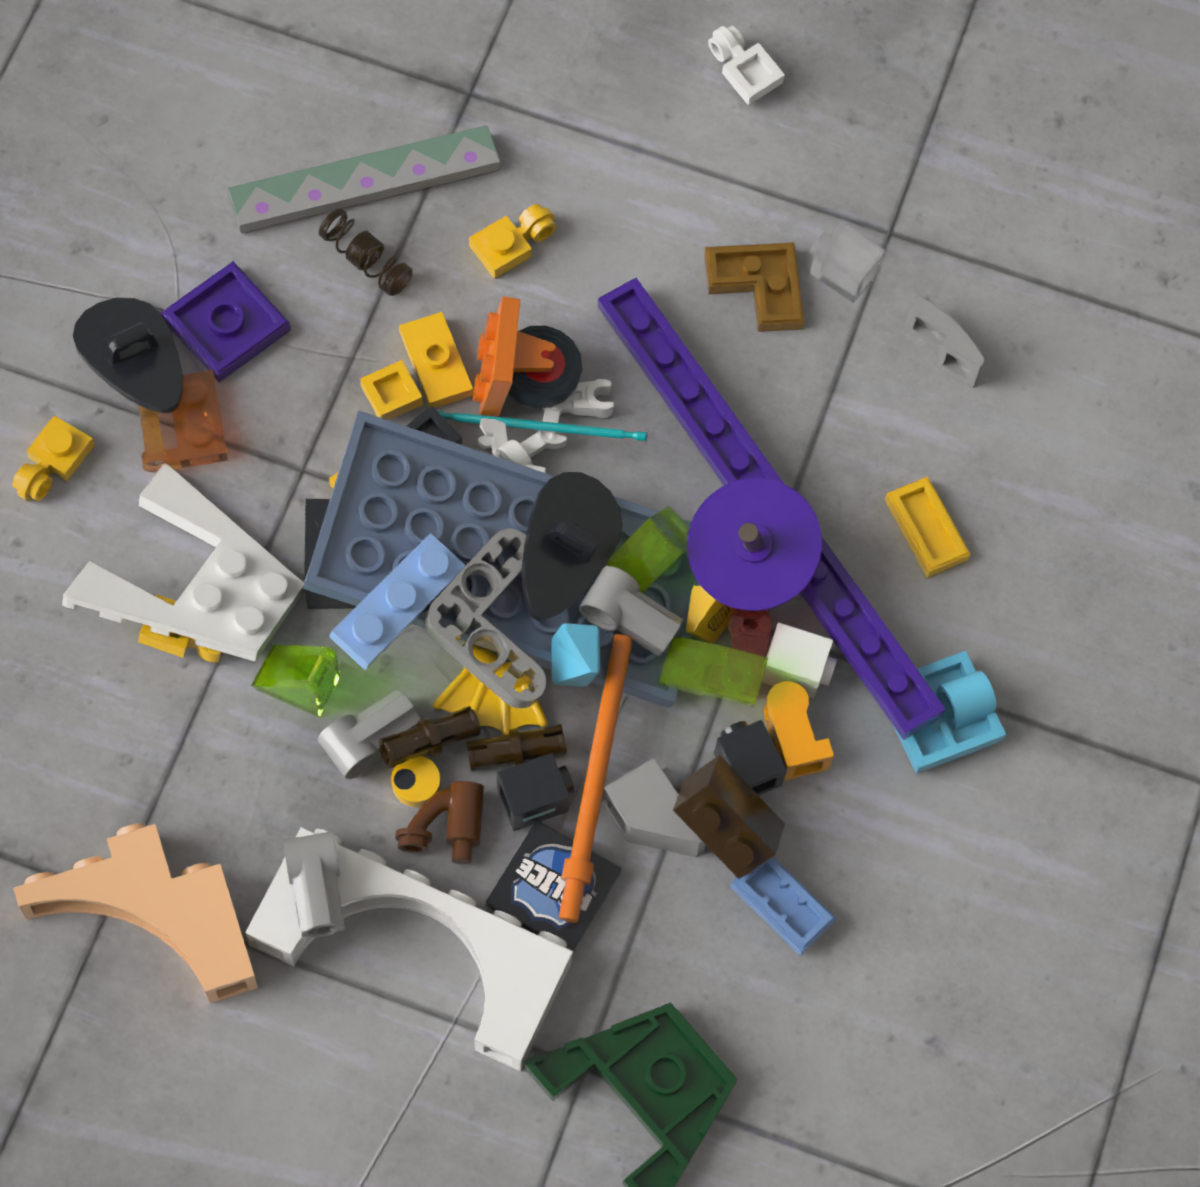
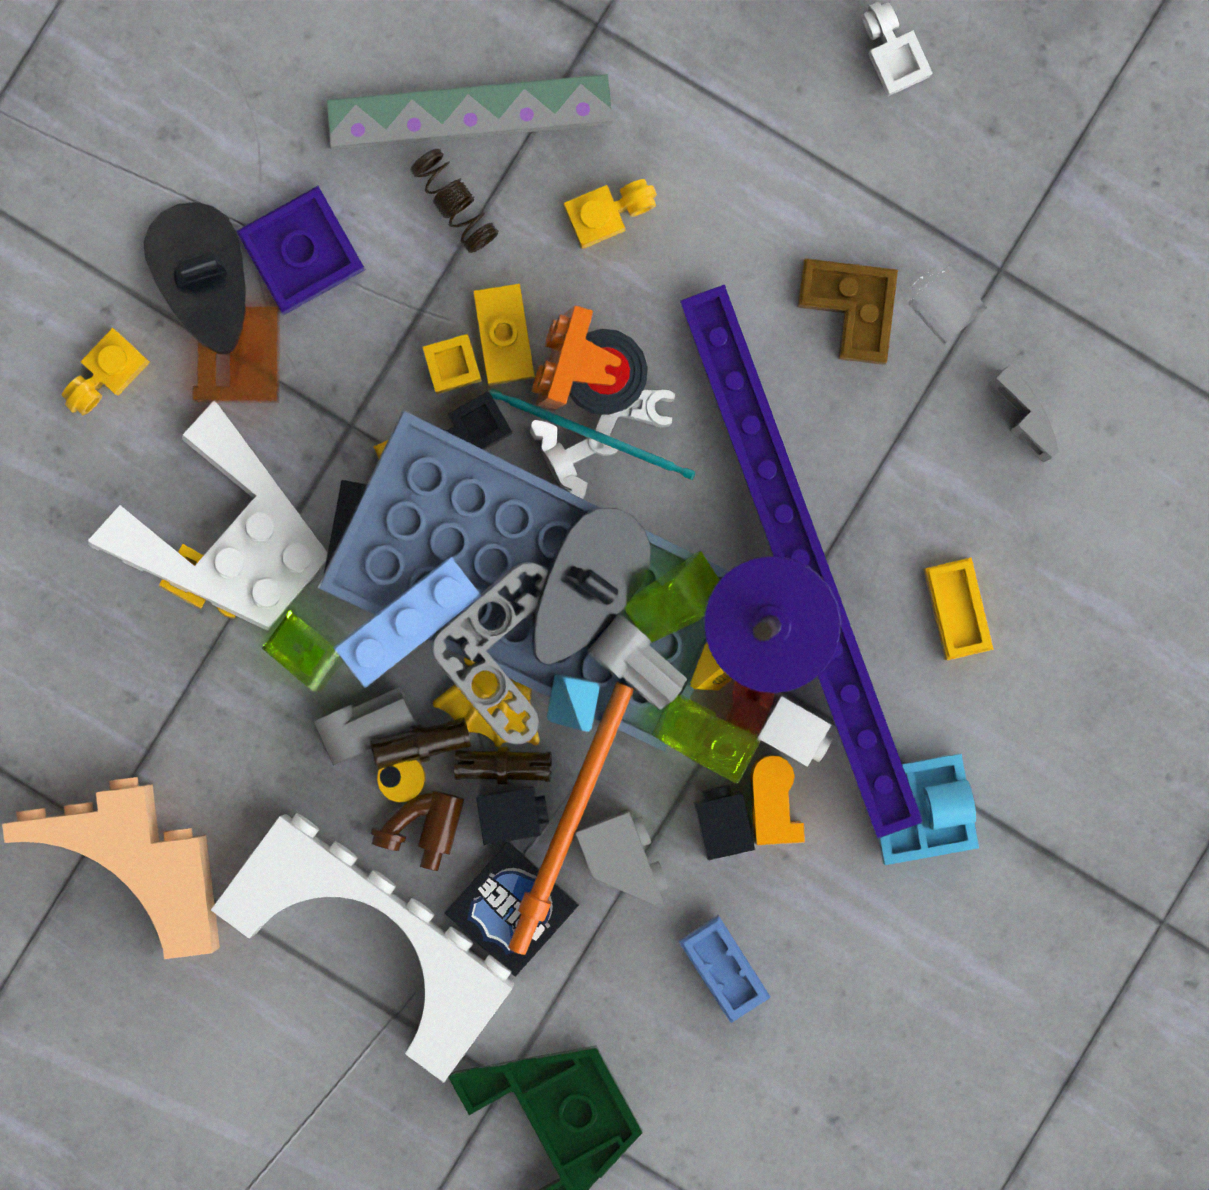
camera: 15 degrees right, 20 degrees up
(314, 872) = (281, 867): light grey piece -> none
(729, 817) = (688, 888): dark brown brick -> none

